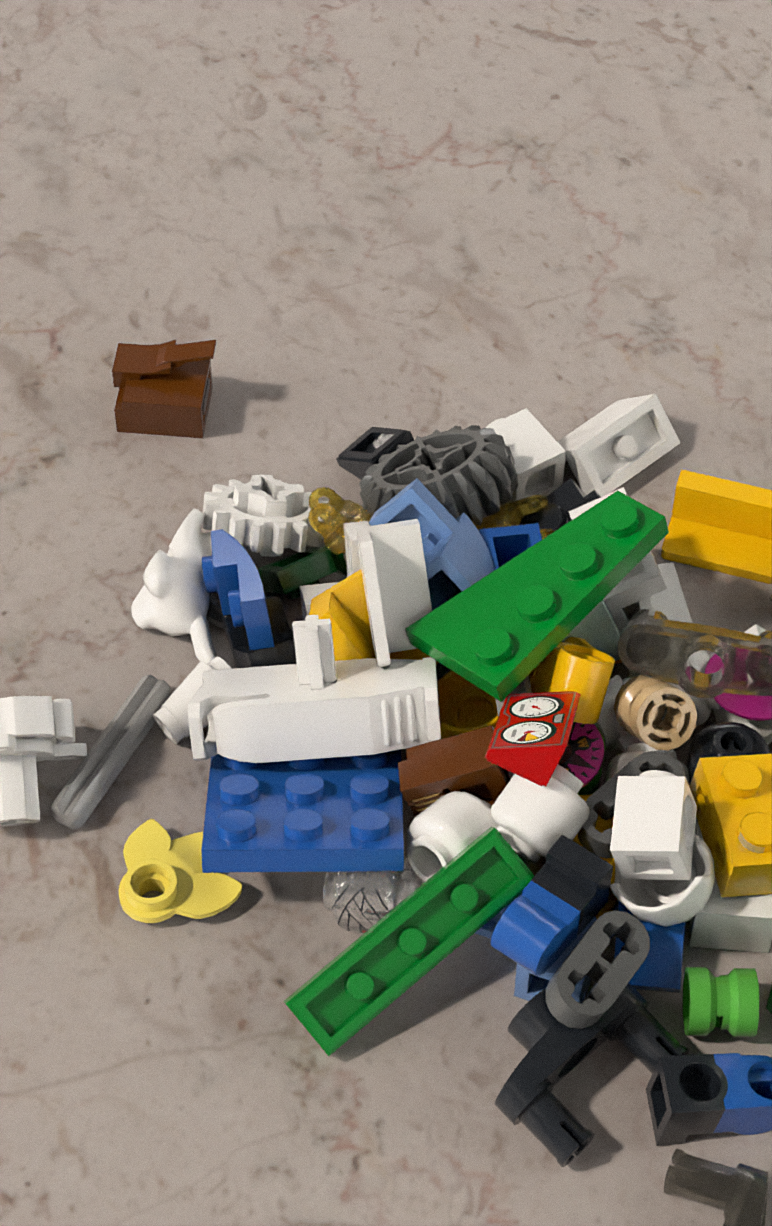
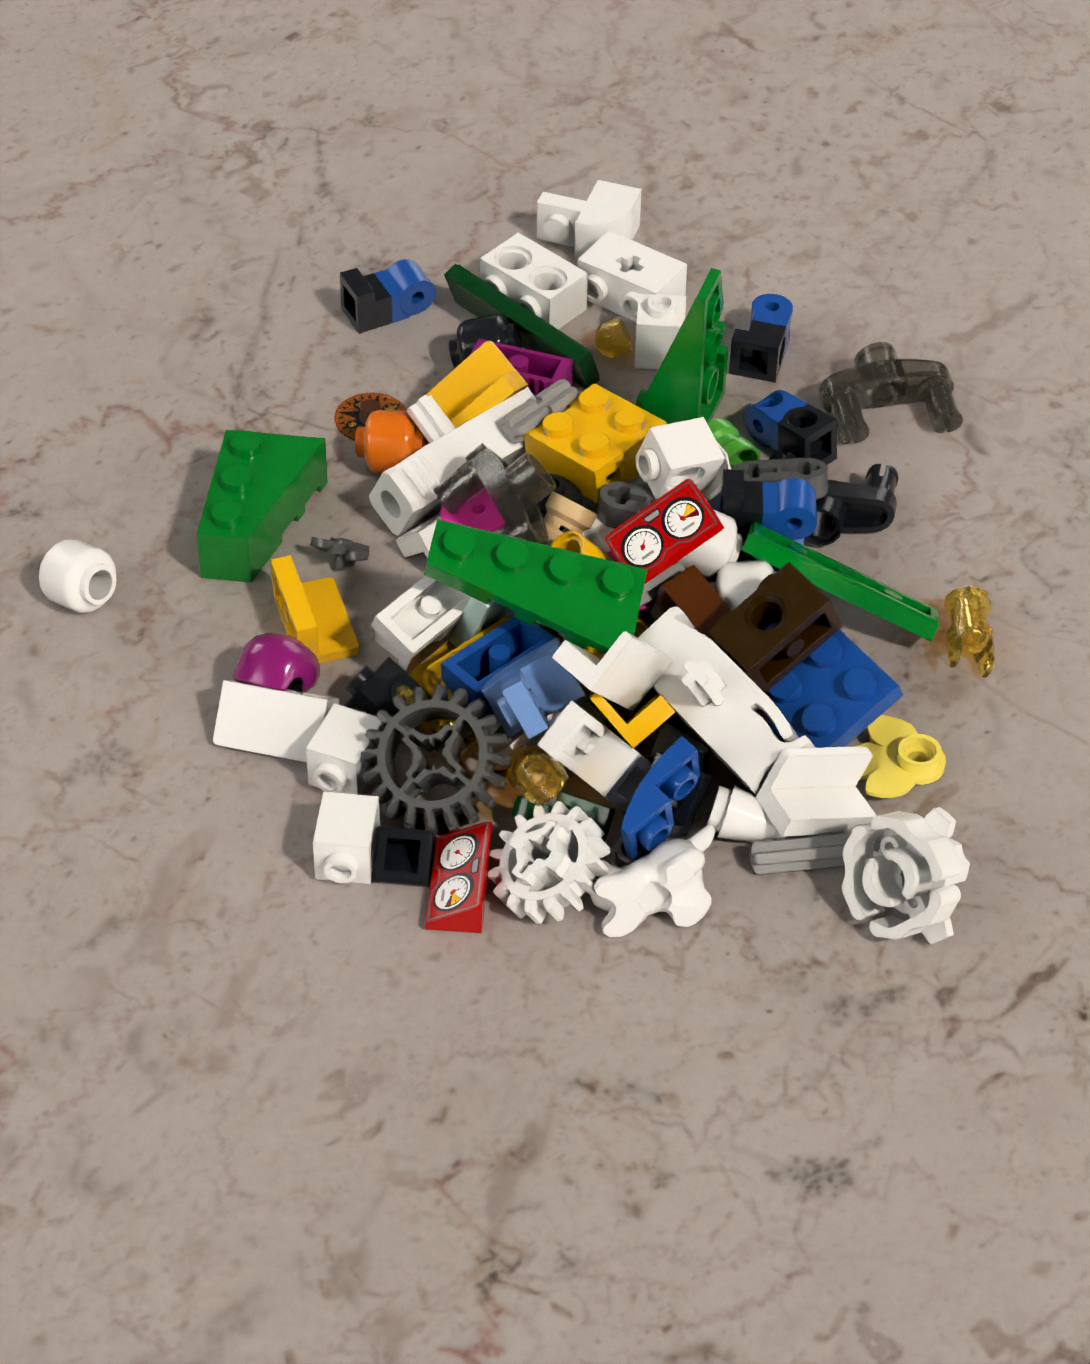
camera: 125 degrees left, 5 degrees down
(157, 751) = (816, 791): none -> white panel
(163, 388) = (461, 1021): reddish brown piece -> none
(278, 1060) = (969, 632): none -> clear yellow piece
(302, 463) = (460, 880): none -> slope
(353, 775) = (804, 624): none -> dark brown brick
(418, 403) = (346, 837): none -> white brick
(654, 453) = (276, 661): none -> magenta hair

